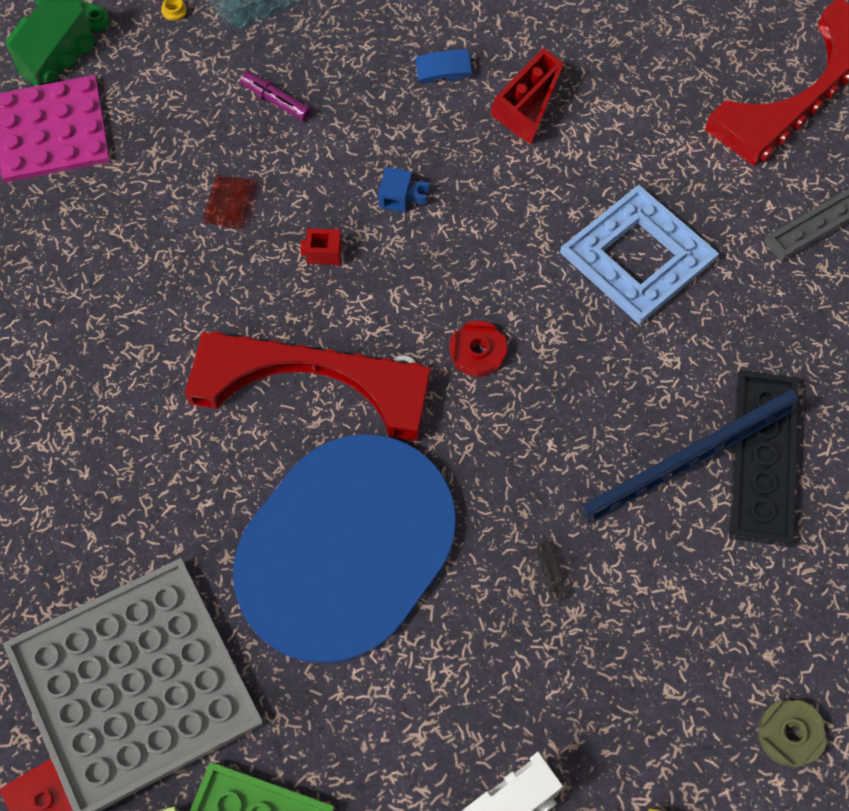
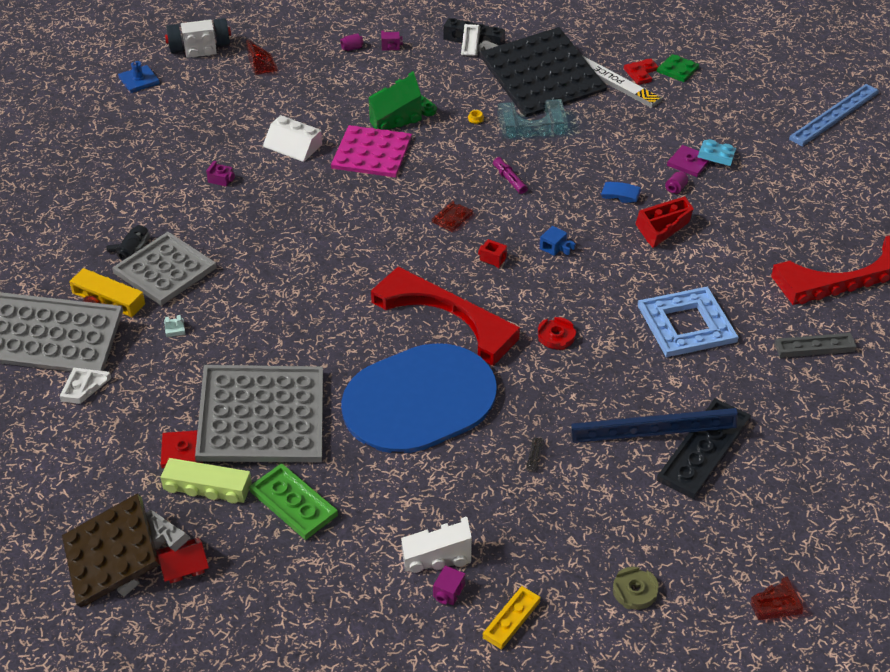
camera: 25 degrees right, 20 degrees down
(510, 20) = (676, 182): none -> magenta brick

